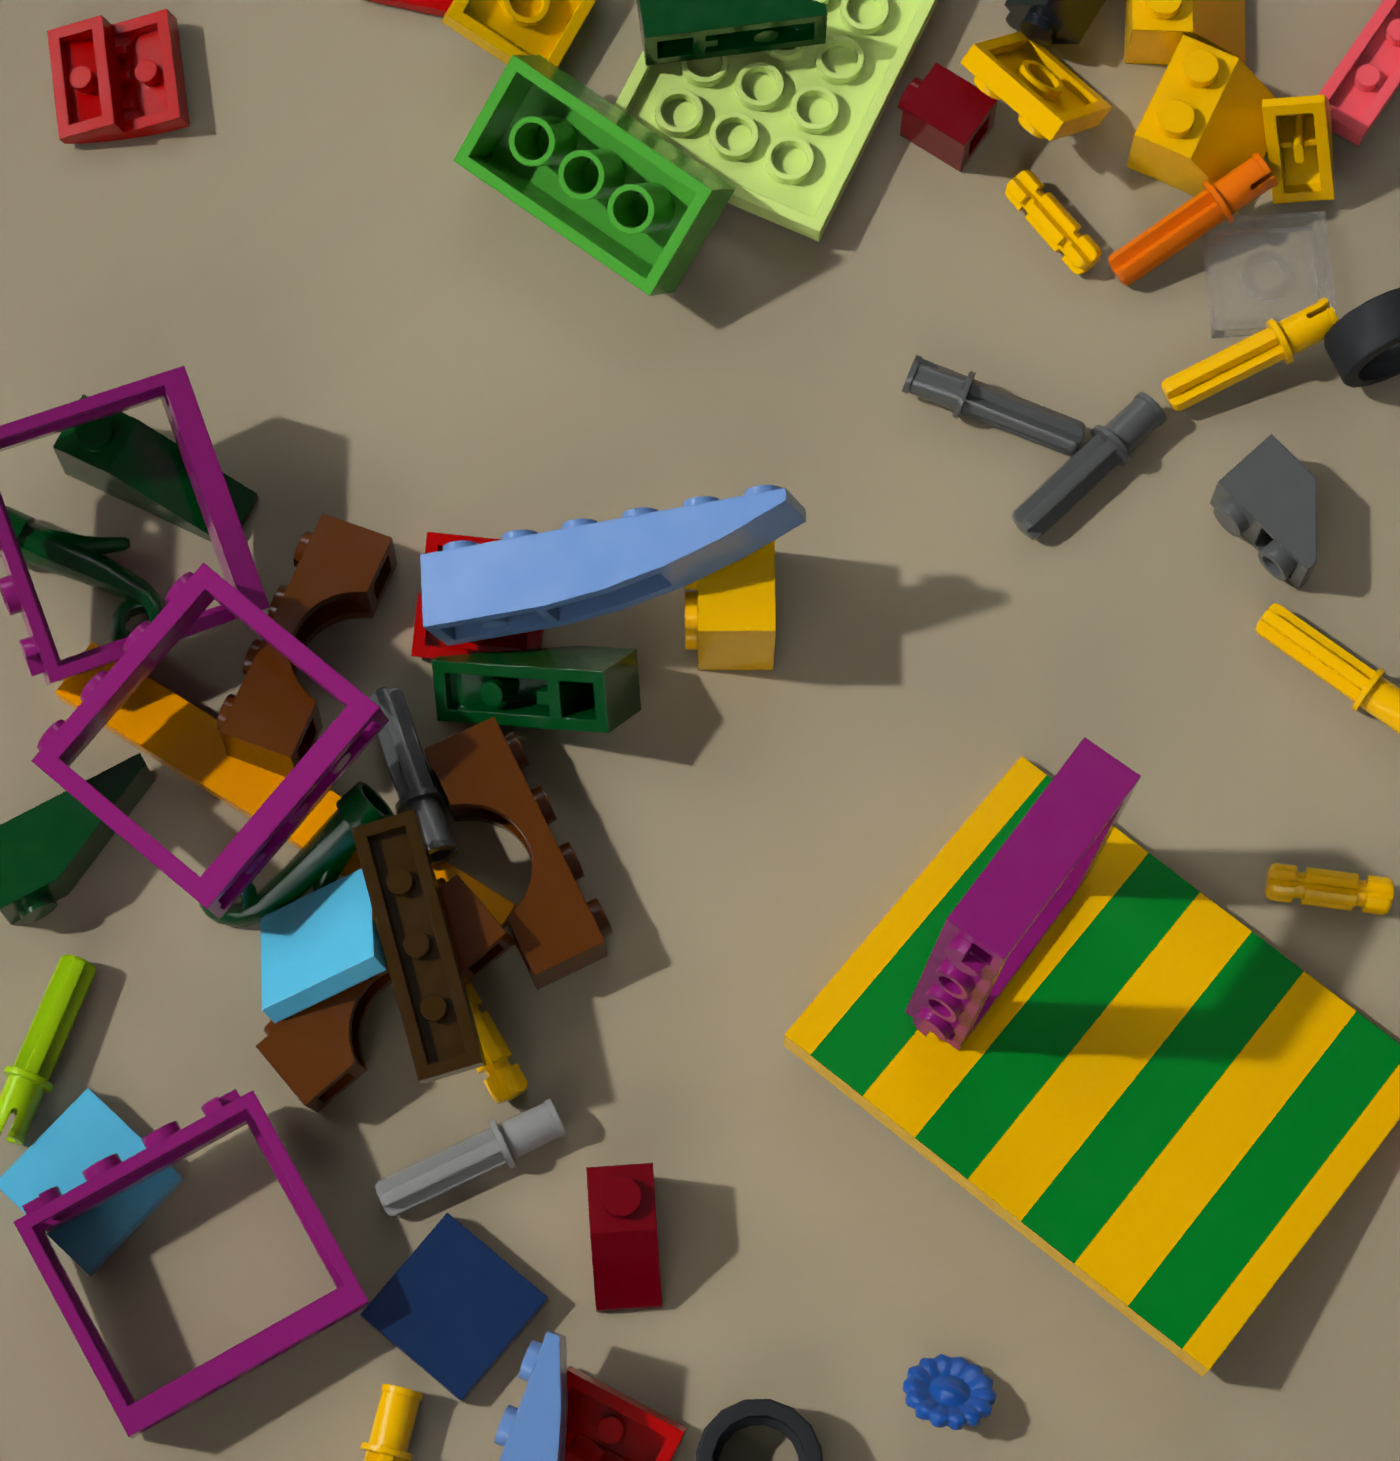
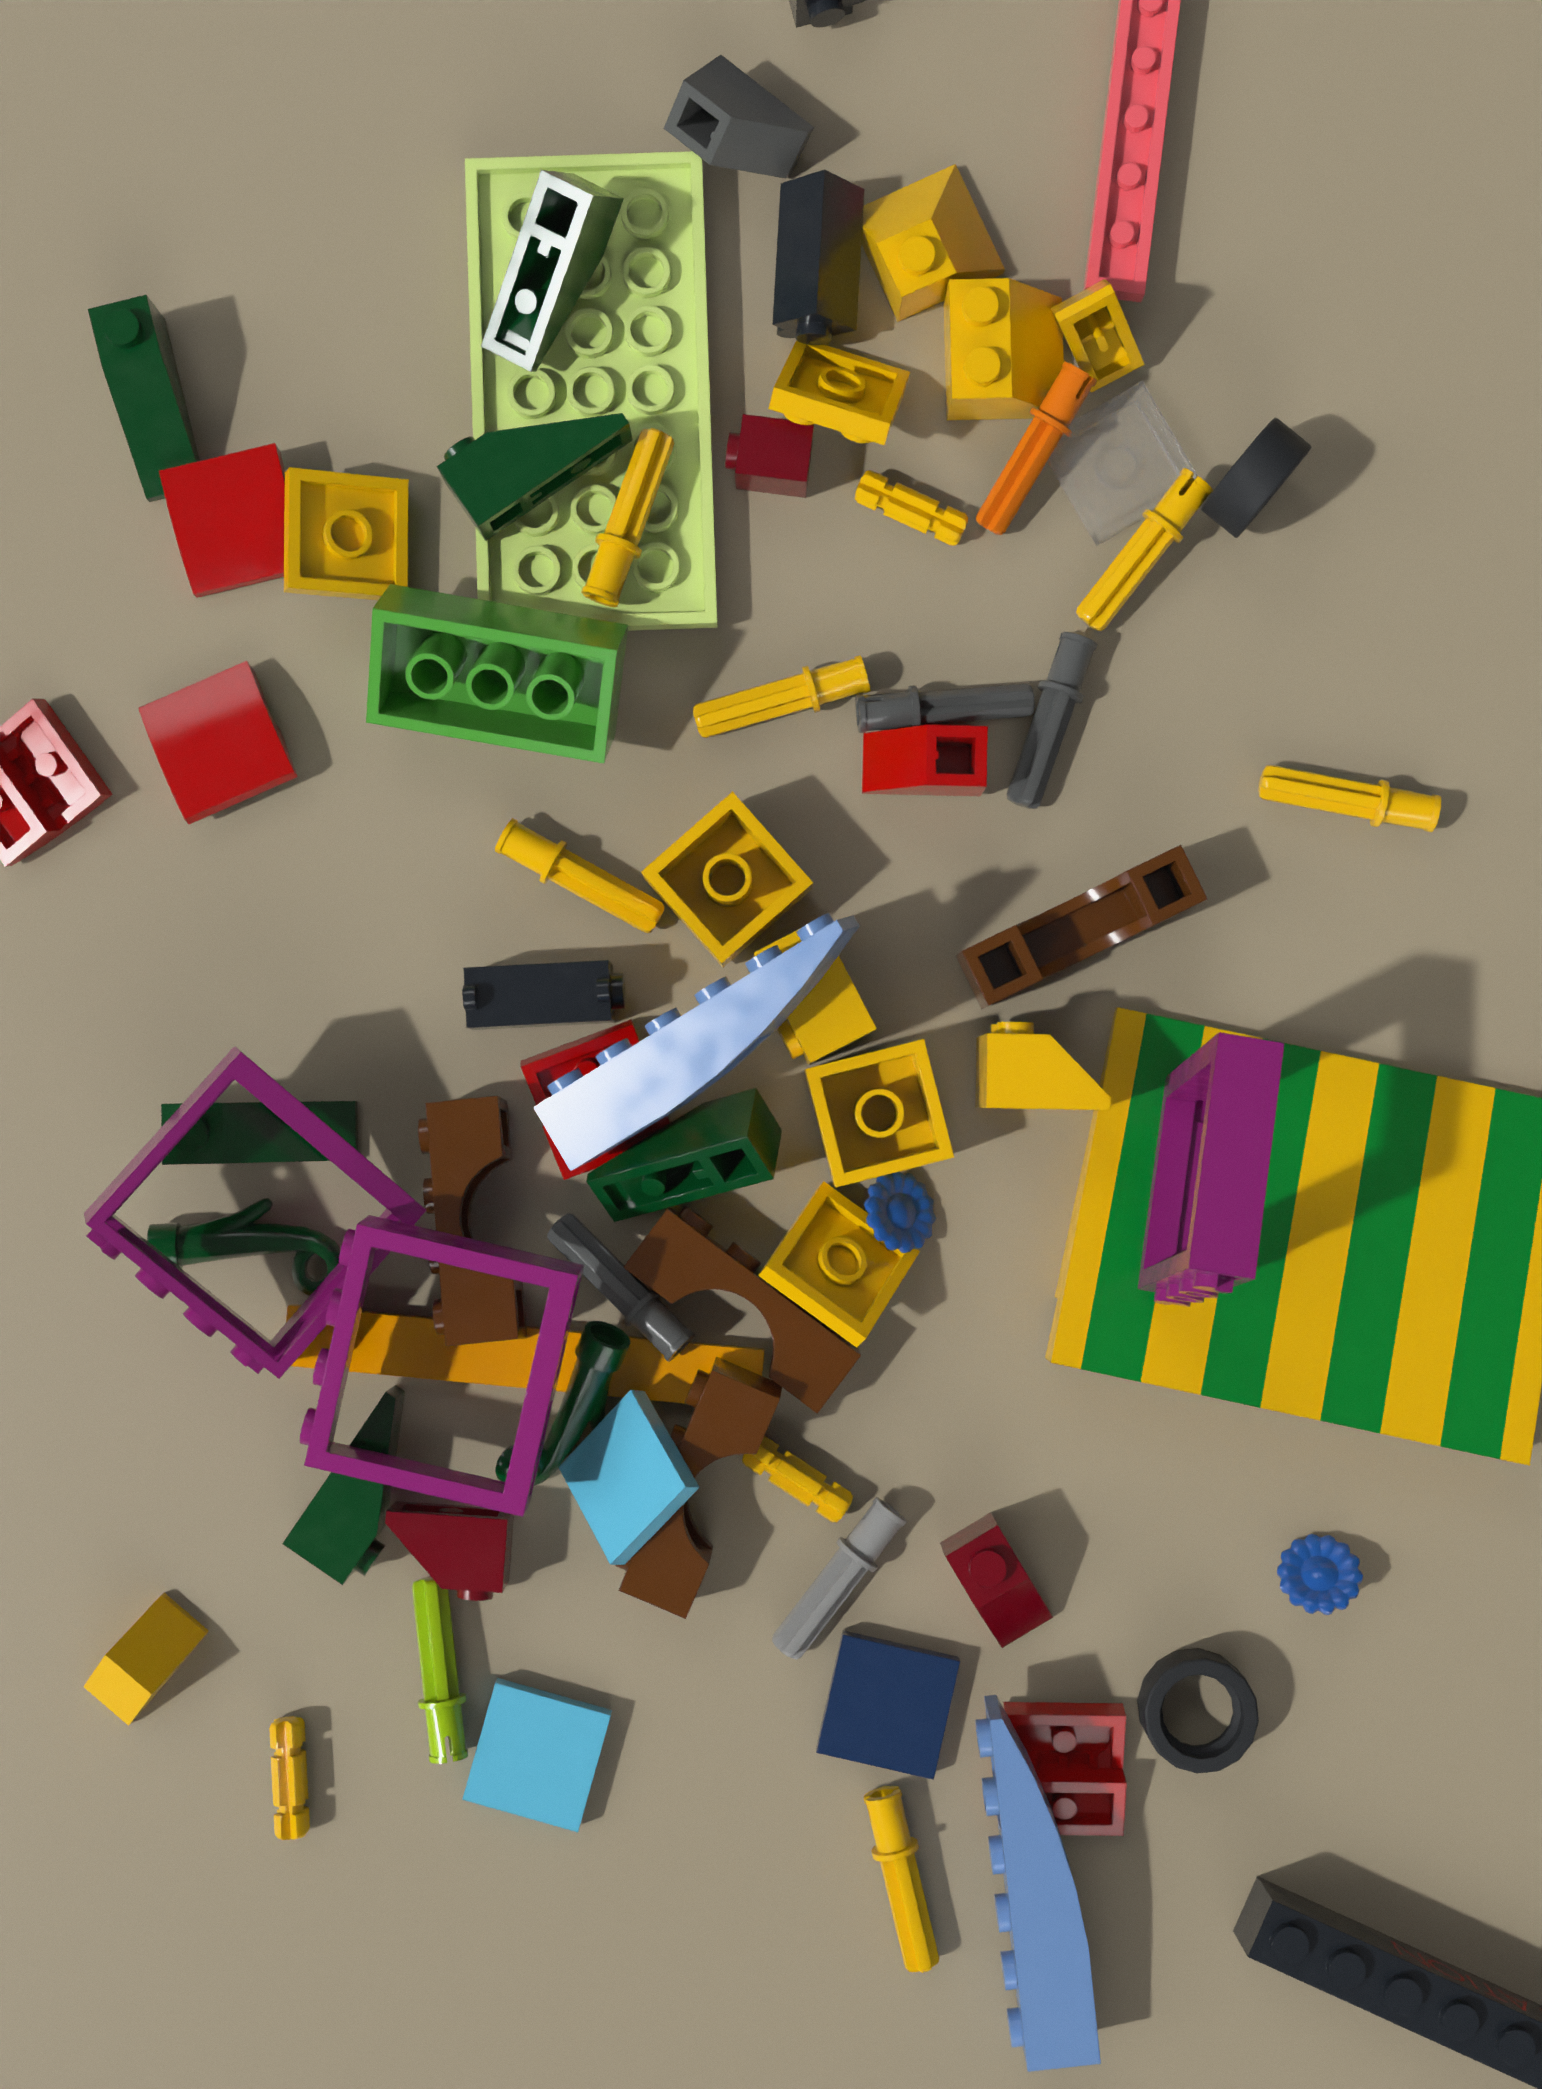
camera: 30 degrees left, 15 degrees up
(112, 1177) = (690, 1923): magenta window -> none
(128, 938) = (457, 1545): none -> dark red slope
(309, 124) = (217, 742): none -> red slope
(418, 947) = (715, 1453): dark brown plate -> none
(480, 477) = (542, 995): none -> black brick
(572, 392) = (579, 876): none -> yellow axle
(630, 851) = (837, 1265): none -> yellow plate
(706, 441) = (727, 879): none -> yellow brick
(714, 838) = (900, 1211): none -> blue piece
(739, 730) = (879, 1113): none -> yellow brick
(785, 102) = (628, 518): none -> yellow axle
(845, 327) = (781, 697): none -> yellow axle
(903, 763) = (1031, 1072): none -> yellow slope
(952, 441) = (926, 761): none -> red slope
(1074, 660) = (1081, 926): none -> reddish brown arch
(1274, 508) = (1231, 681): dark grey slope -> none
(1329, 888) = (1426, 994): yellow axle -> none

